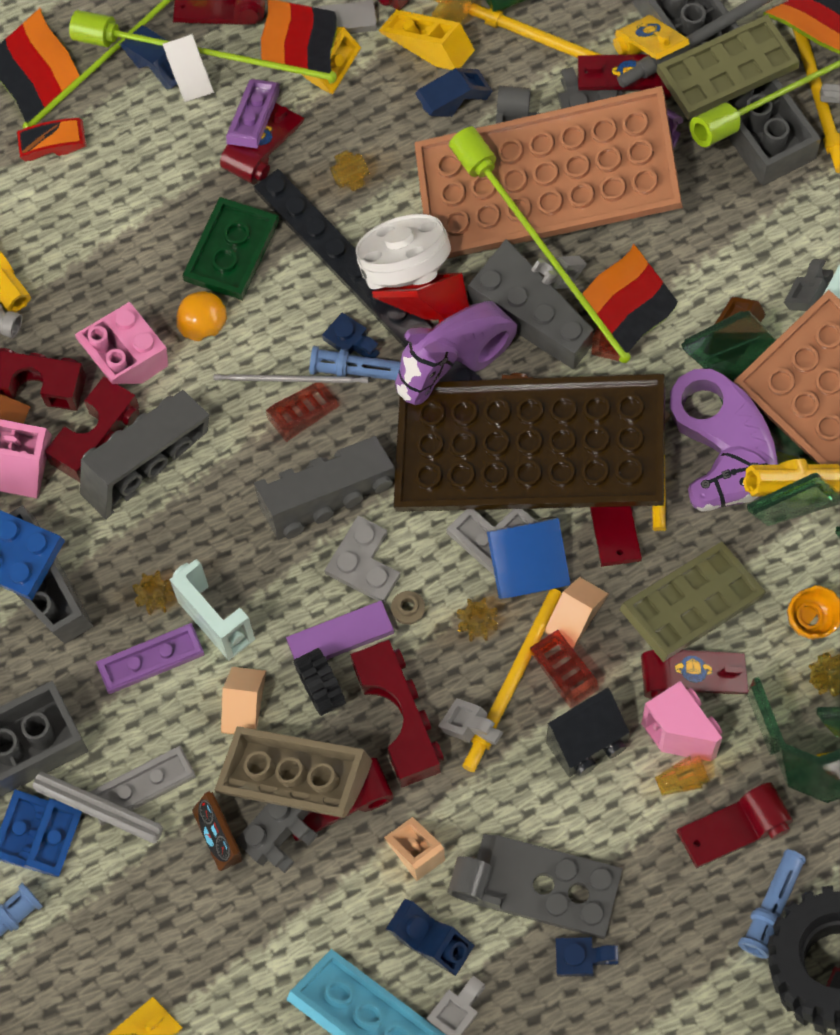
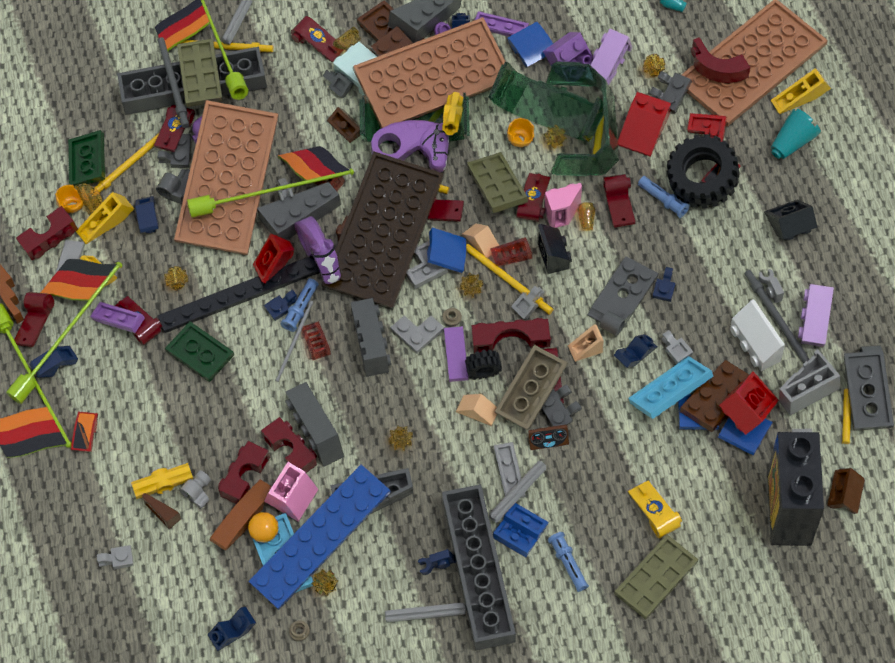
camera: 75 degrees left, 5 degrees down
(124, 346) = (244, 415): bright pink slope -> none
(150, 658) = (437, 450): medium lavender tile -> none
(188, 67) = (73, 341): white slope -> none
(200, 315) = (236, 378): light orange hair -> none
(228, 634) = (425, 410): light aqua panel -> none
(403, 251) = (245, 258): white piece -> none
(648, 36) = (160, 105): yellow door -> none

